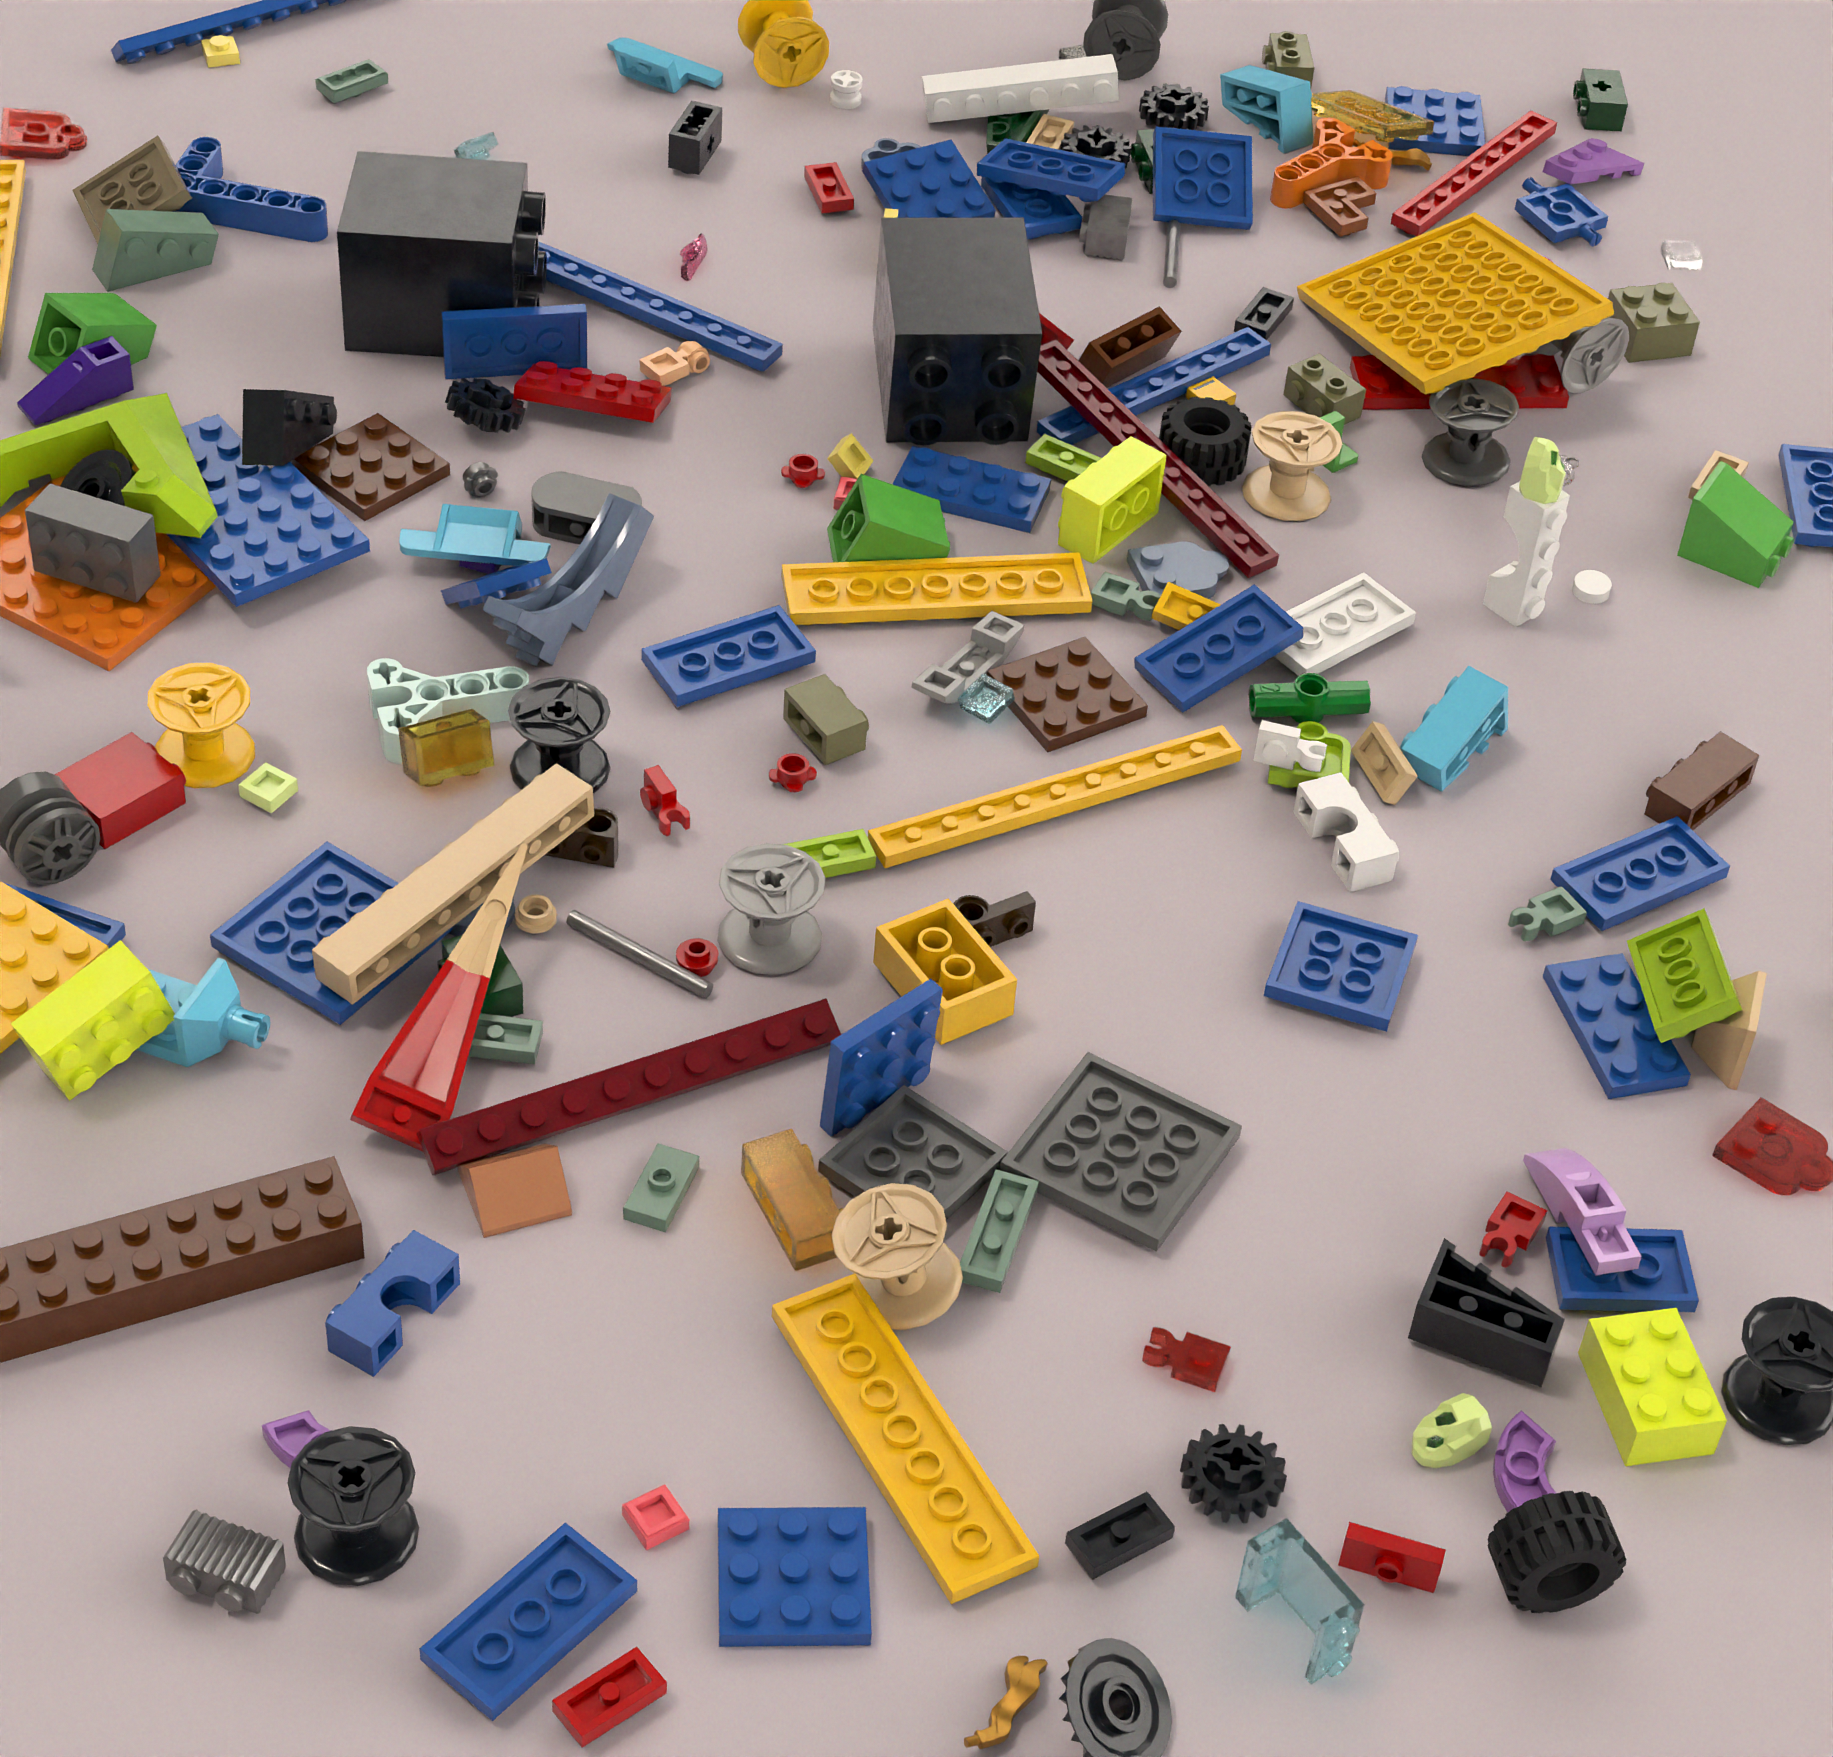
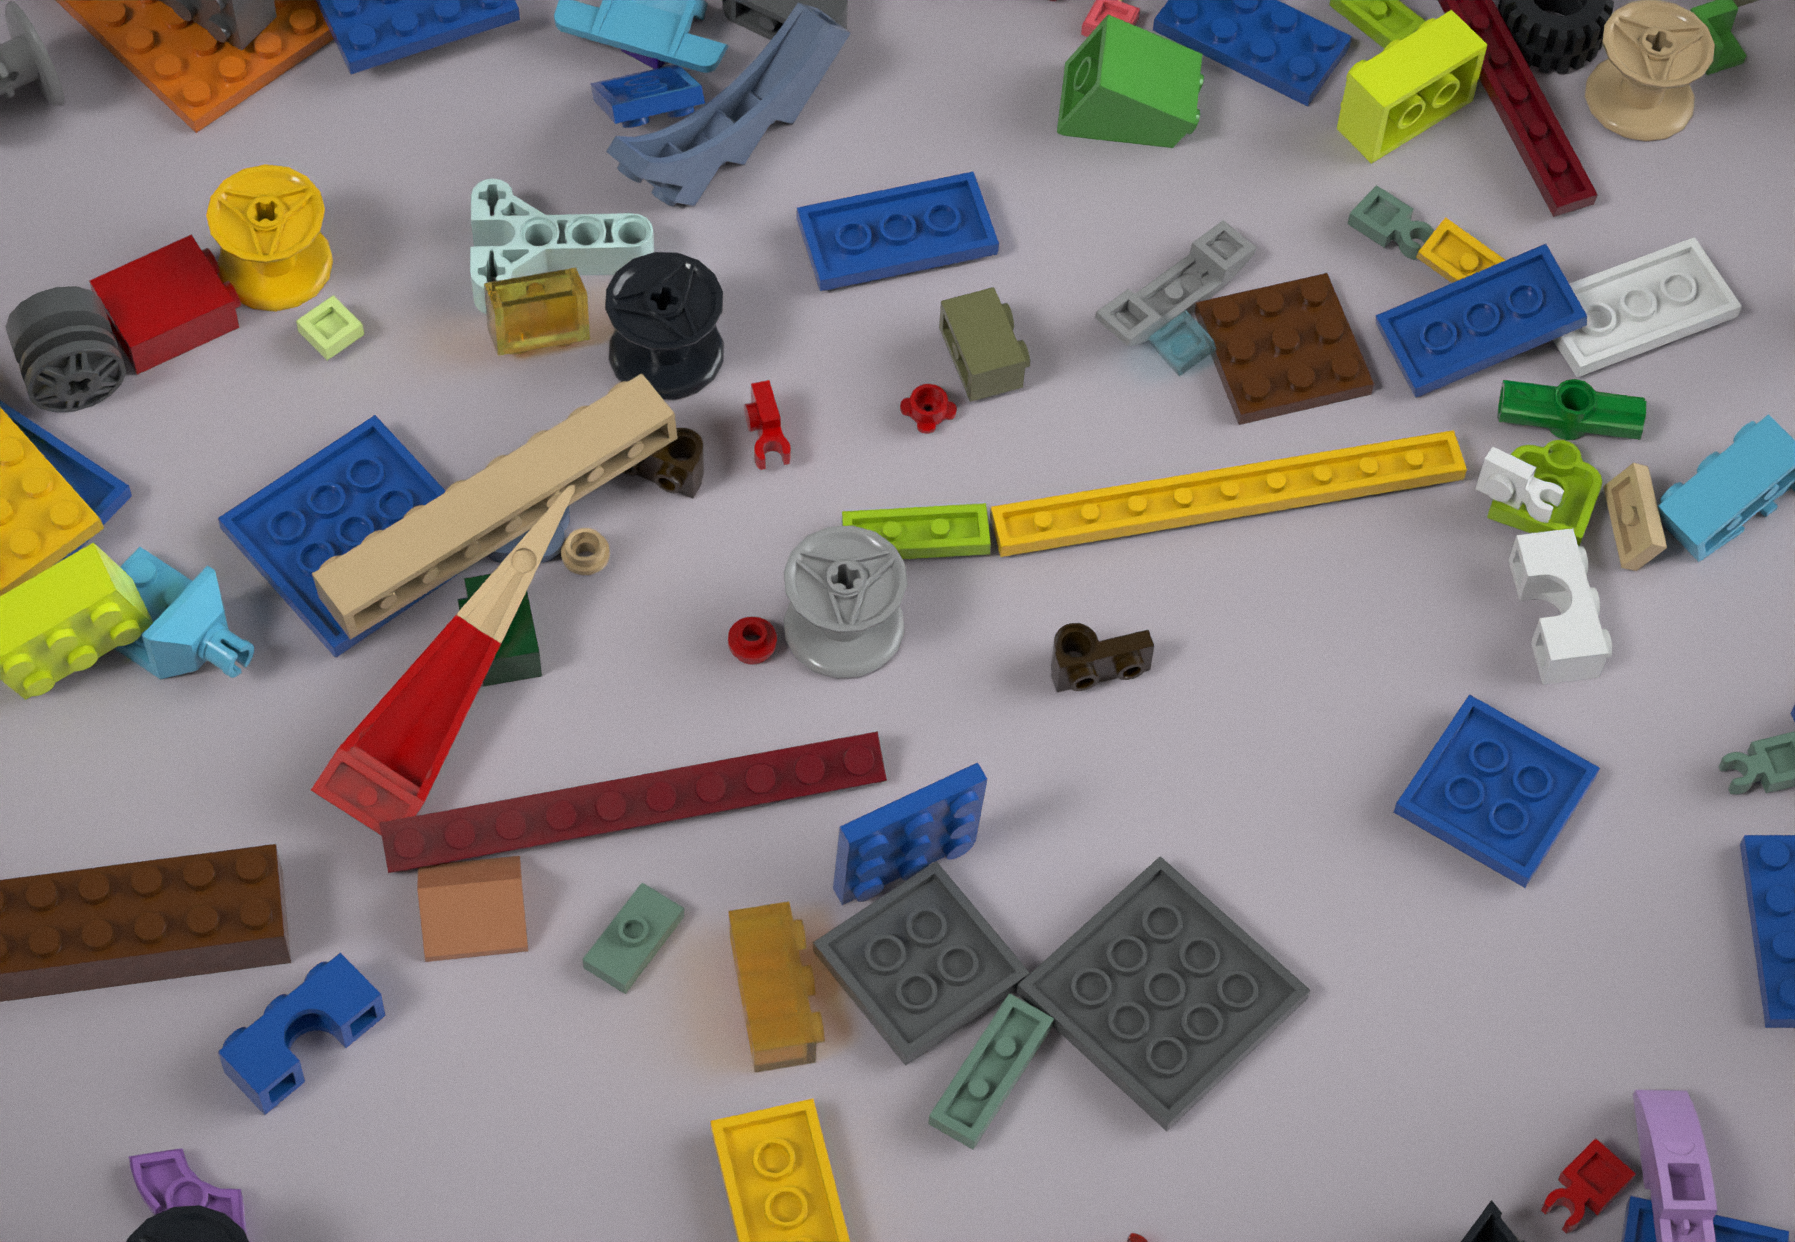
camera: 15 degrees right, 15 degrees up
(507, 1038) = (510, 712): sand green plate -> none
(639, 954) = (690, 623): flat silver bar -> none
(898, 1253) = (860, 1093): tan piece -> none
(935, 588) = (1168, 174): yellow plate -> none
(947, 949) = (1023, 719): yellow brick -> none
(1179, 564) = (1470, 192): plate -> none

